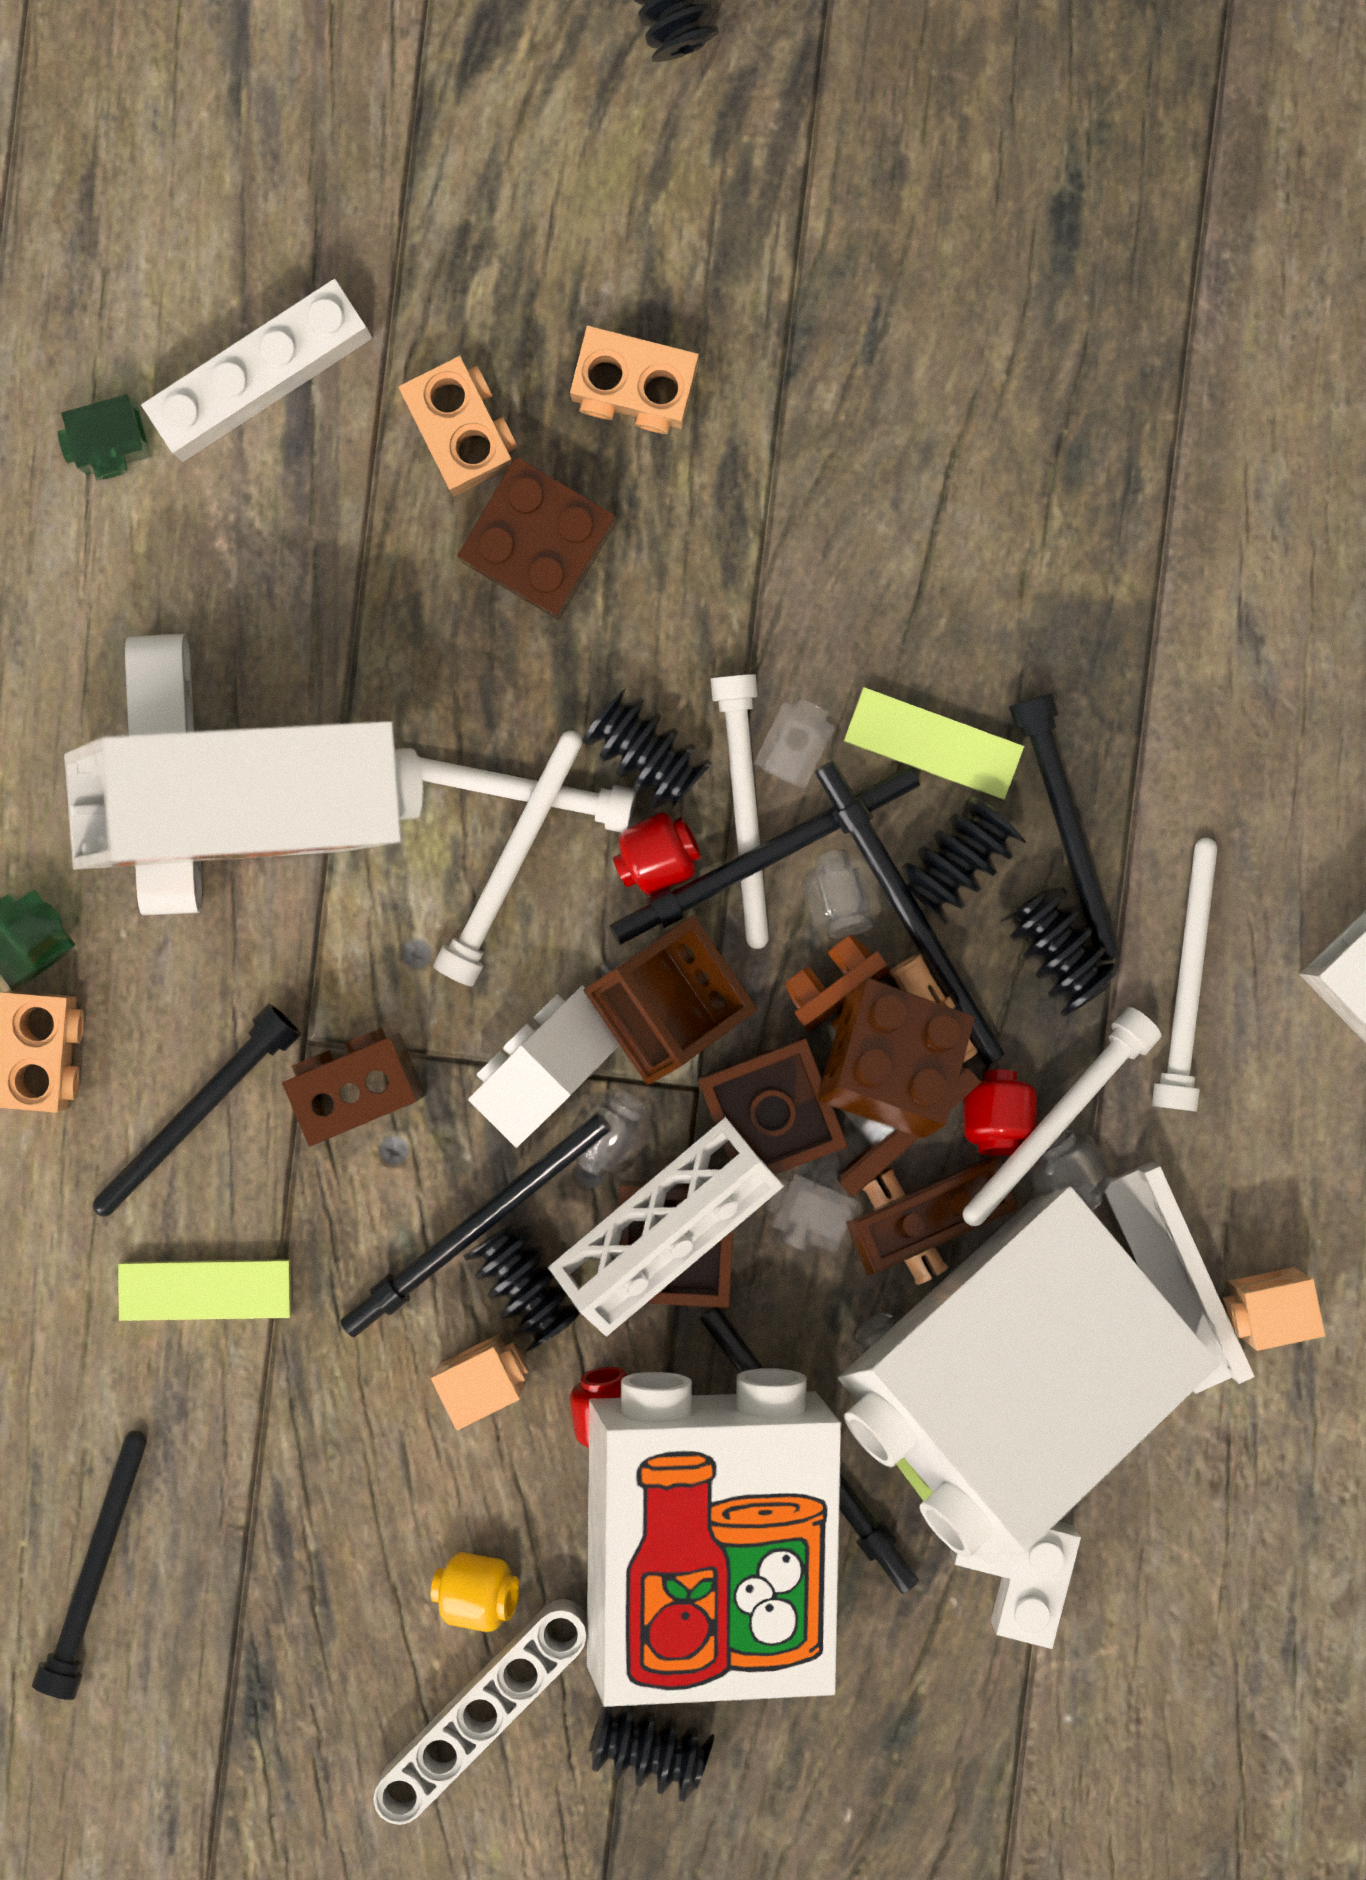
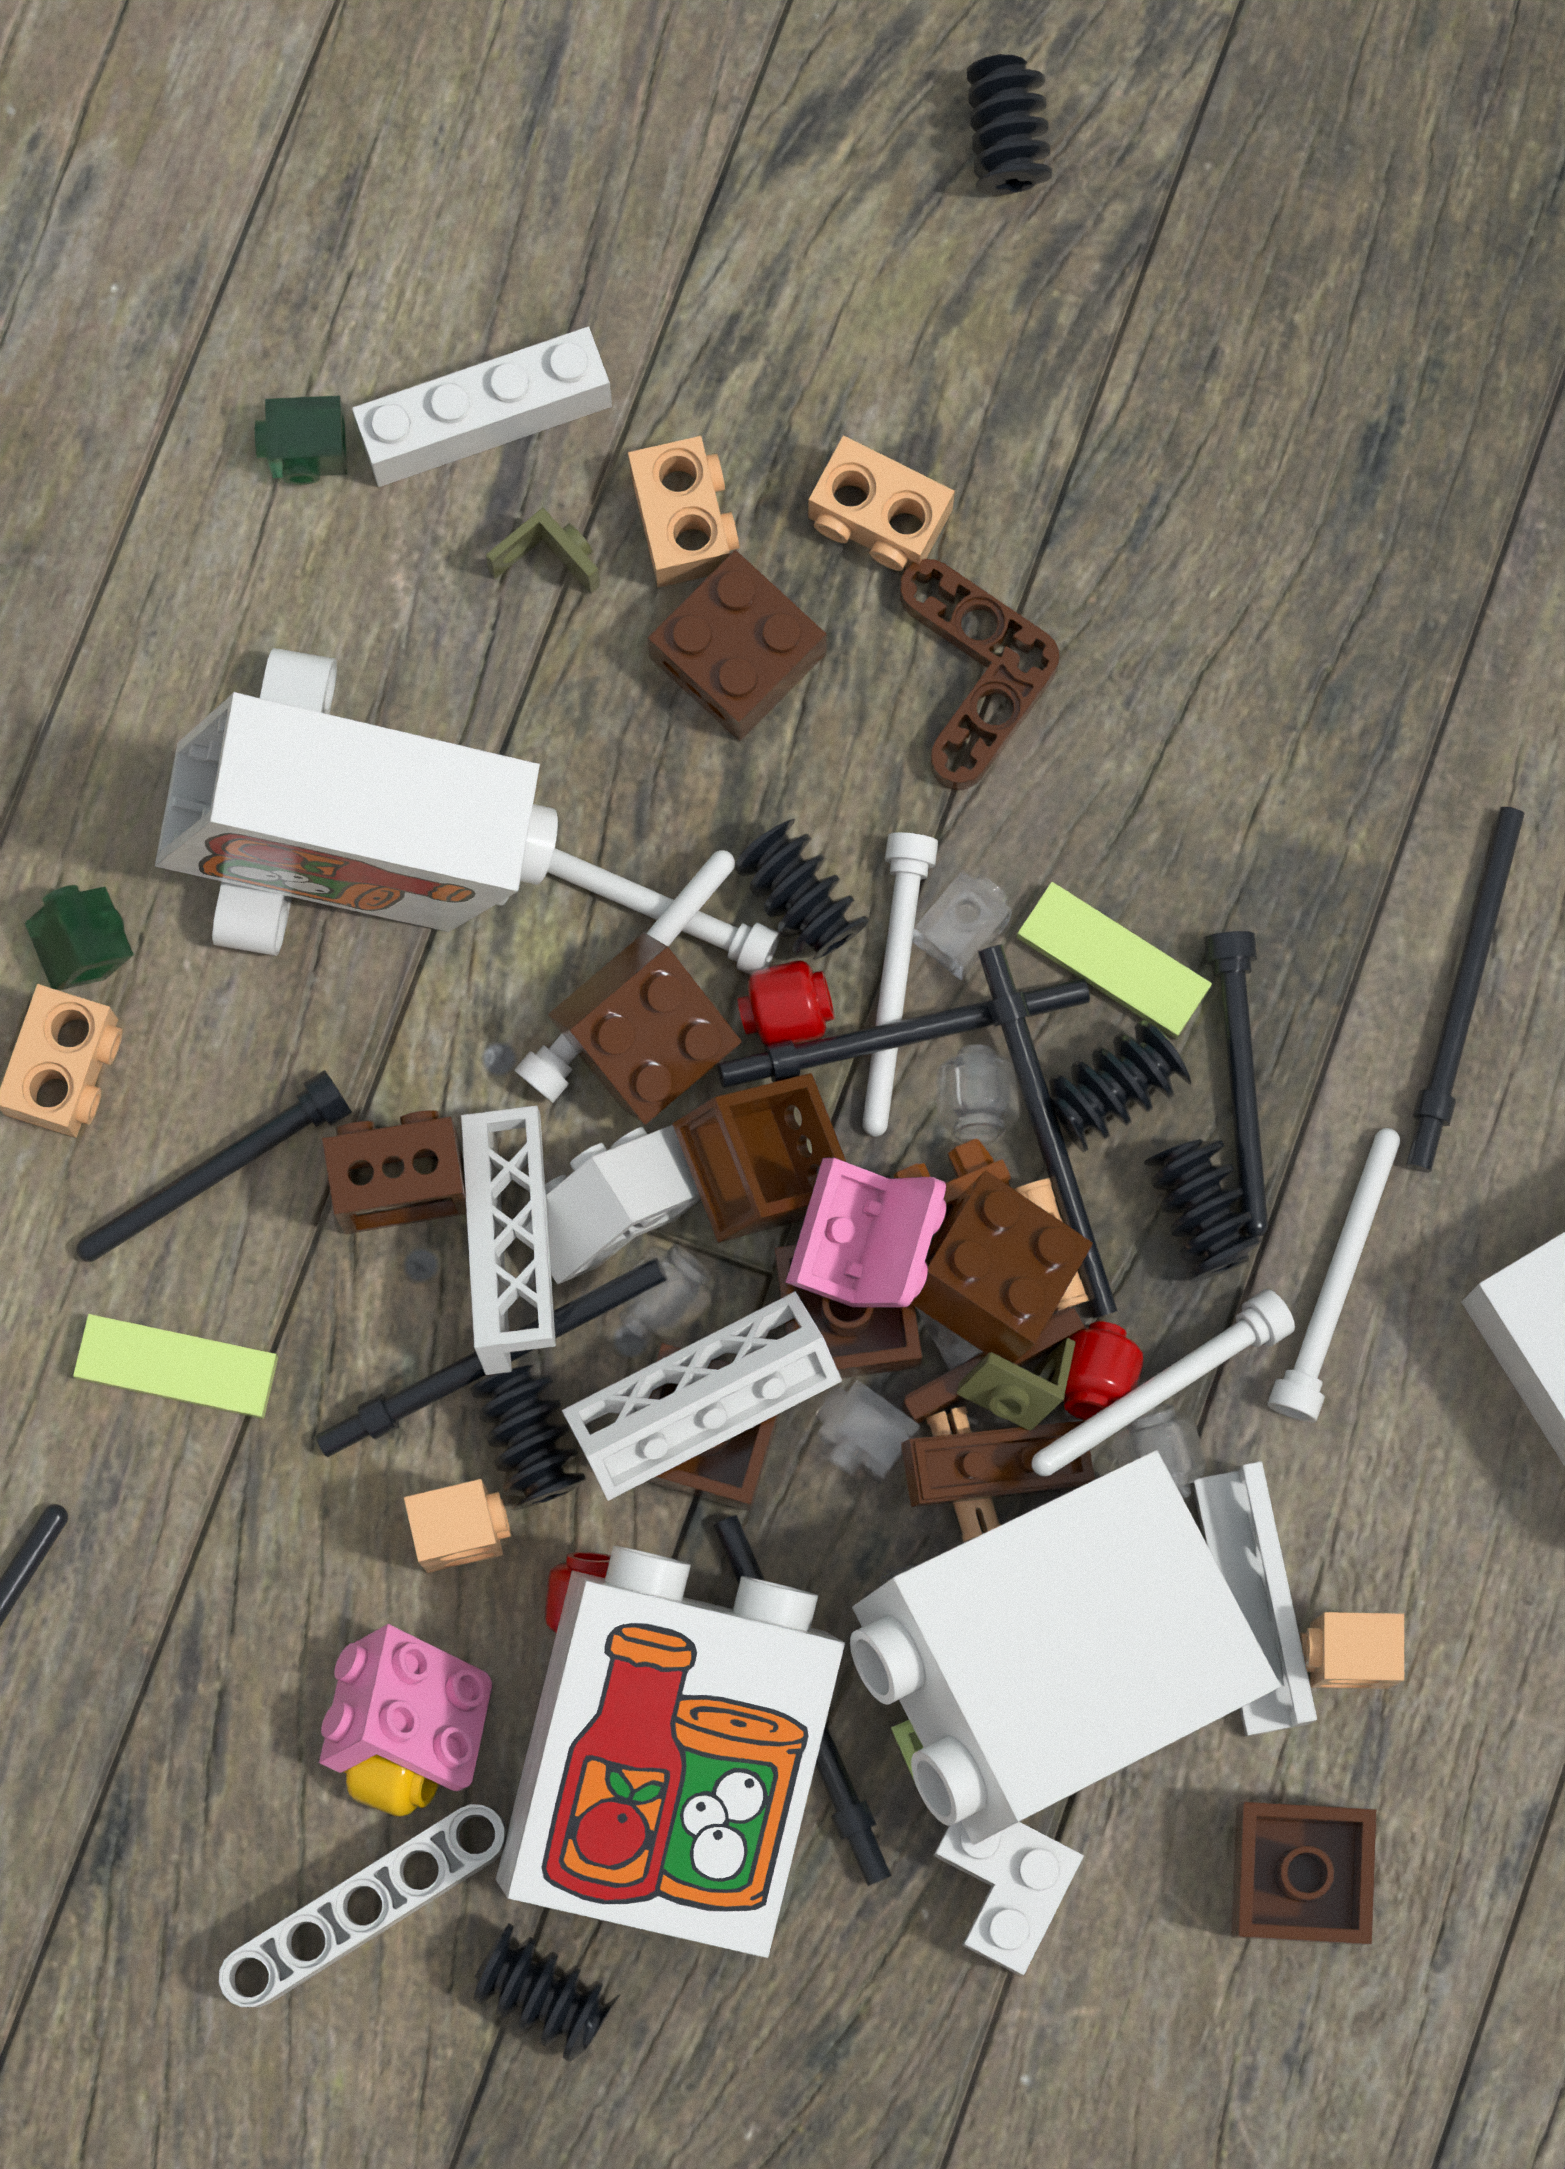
camera: 10 degrees right, 10 degrees down
(361, 477) = (565, 543): none -> olive bracket
(449, 1132) = (489, 1240): none -> white fence
(476, 1543) = (407, 1706): none -> bright pink bracket
(537, 908) = (644, 1028): none -> reddish brown brick
(776, 511) = (1002, 672): none -> reddish brown beam
(778, 1060) = (867, 1236): none -> bright pink bracket
(936, 1158) = (1015, 1392): none -> olive bracket
(1242, 808) = (1435, 1104): none -> black bar
(1269, 1505) = (1304, 1873): none -> reddish brown brick

